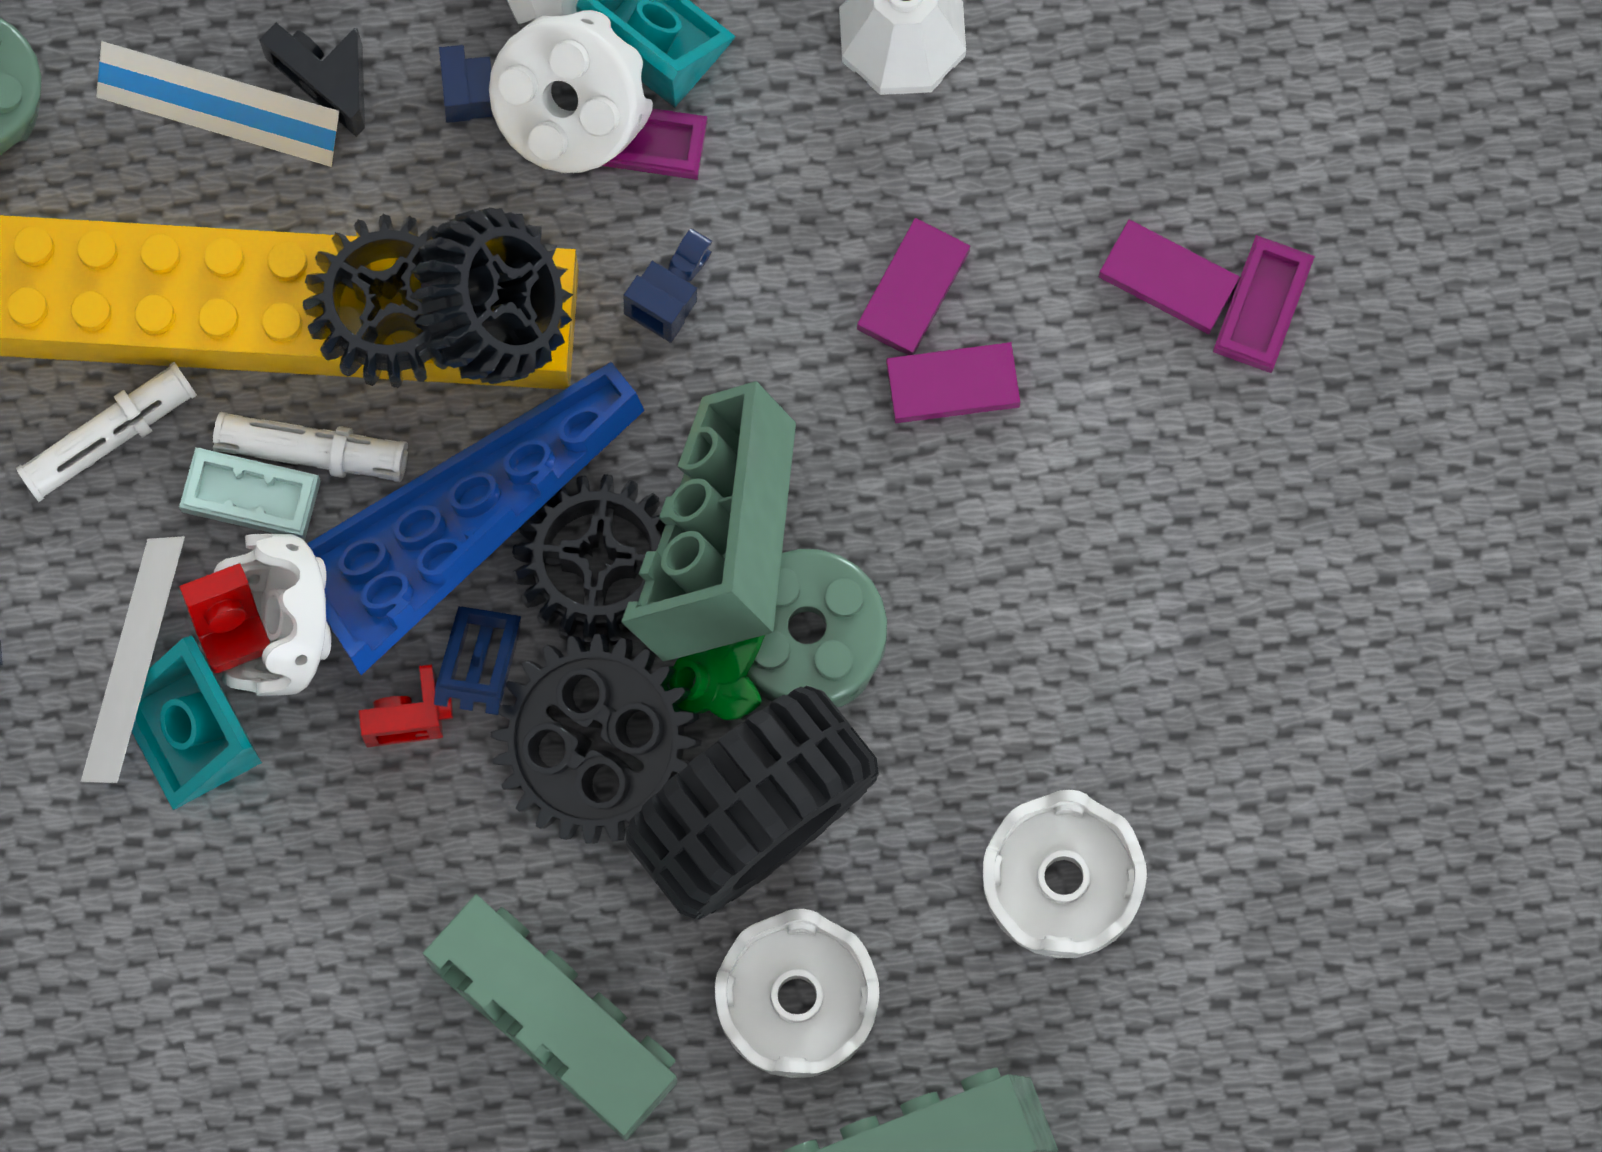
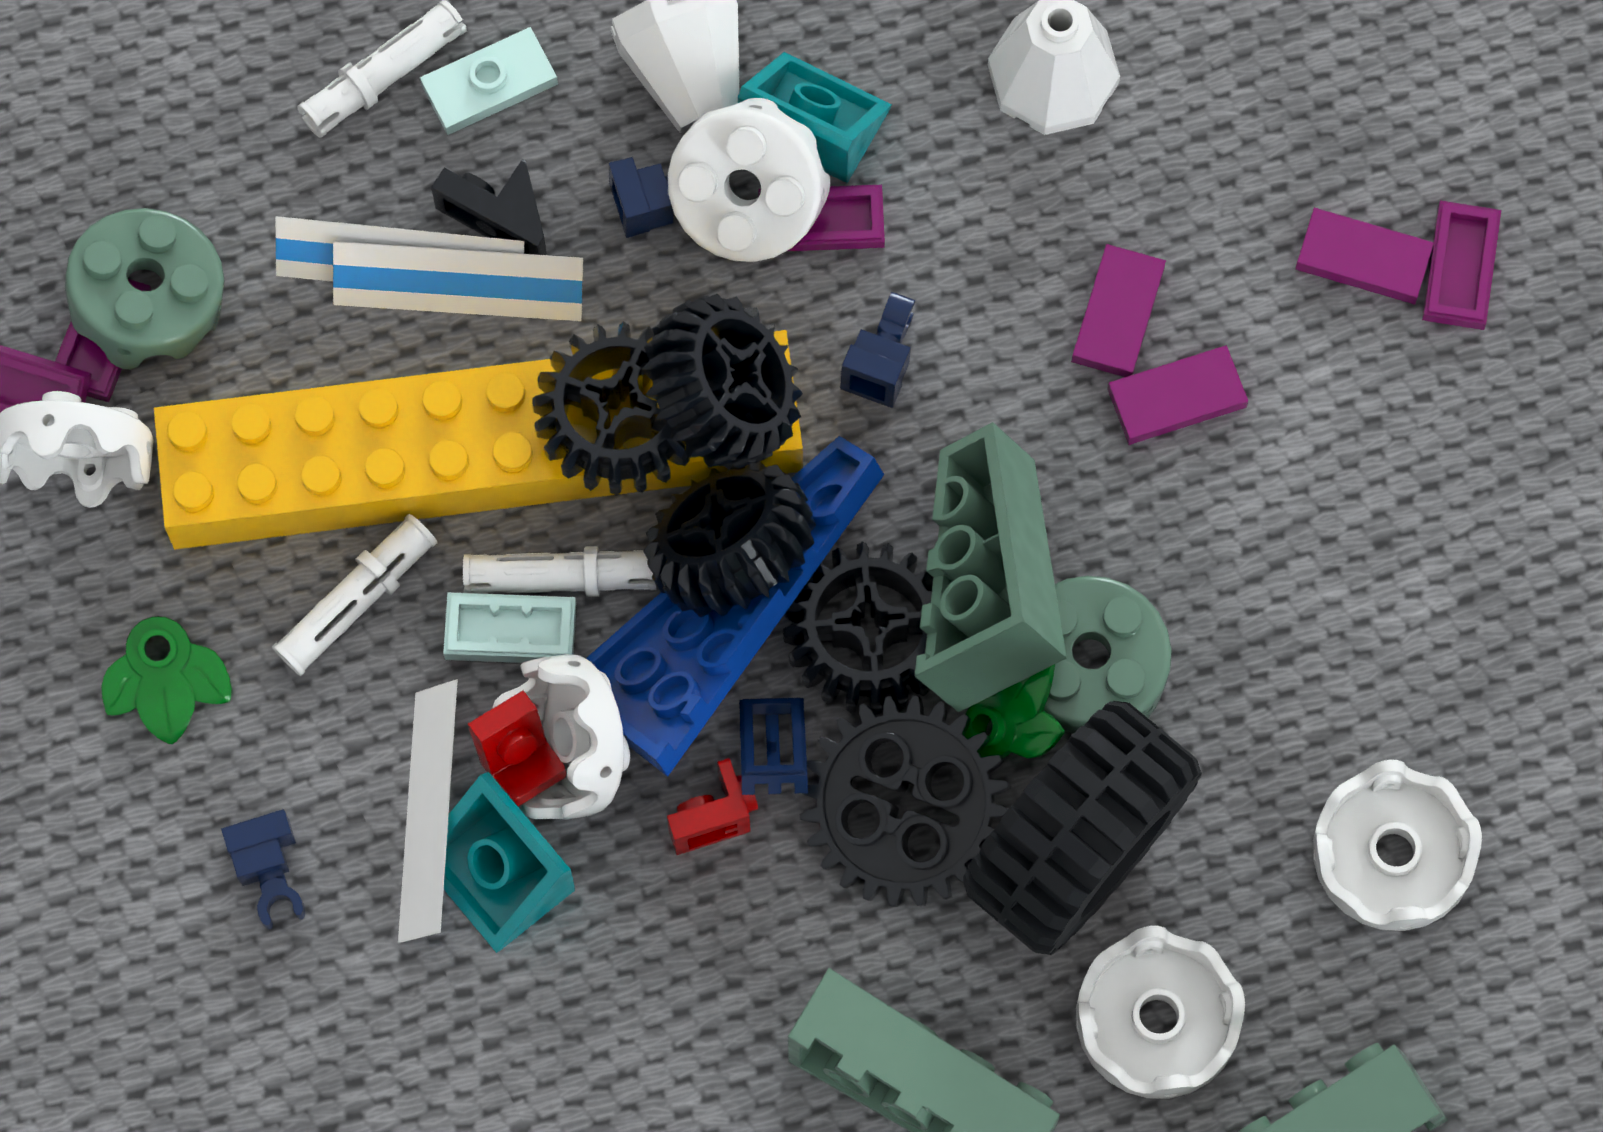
camera: 10 degrees left, 5 degrees down
(269, 137) = (457, 281): none -> white sticker
(475, 449) = (729, 538): none -> black gear

